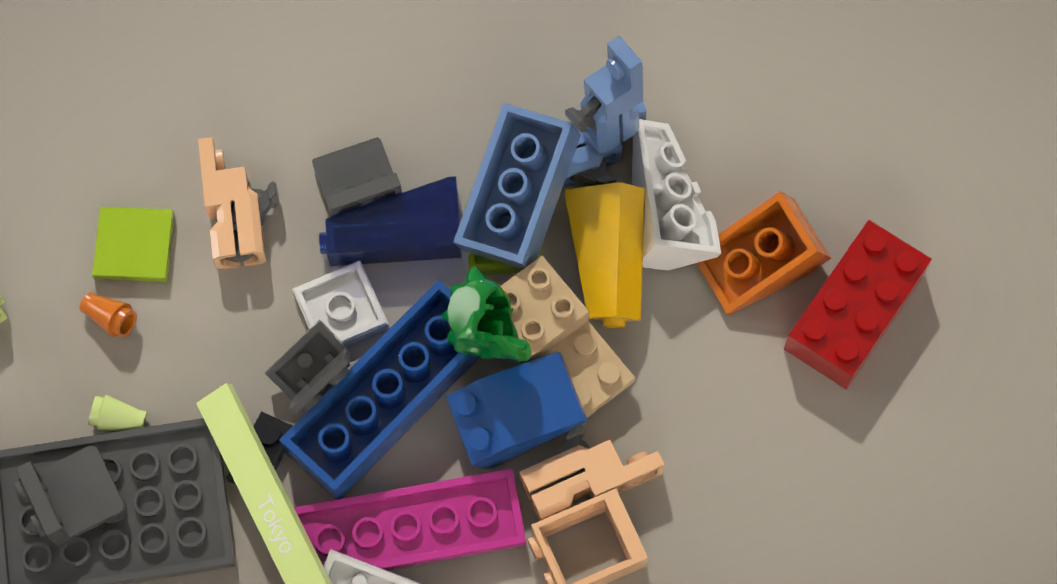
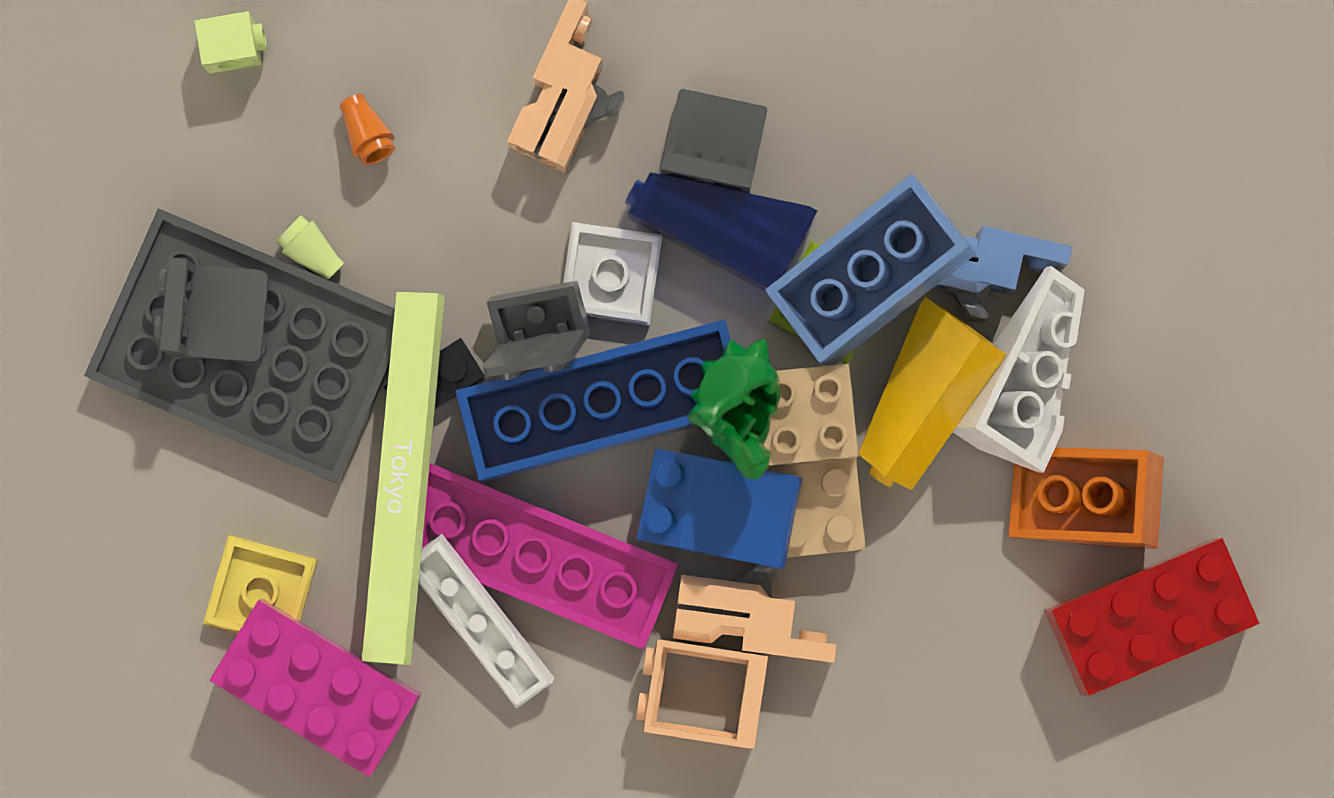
camera: 30 degrees right, 15 degrees up
(133, 244) = (437, 65): lime tile -> none
(610, 99) = (1026, 245): medium blue plate -> none

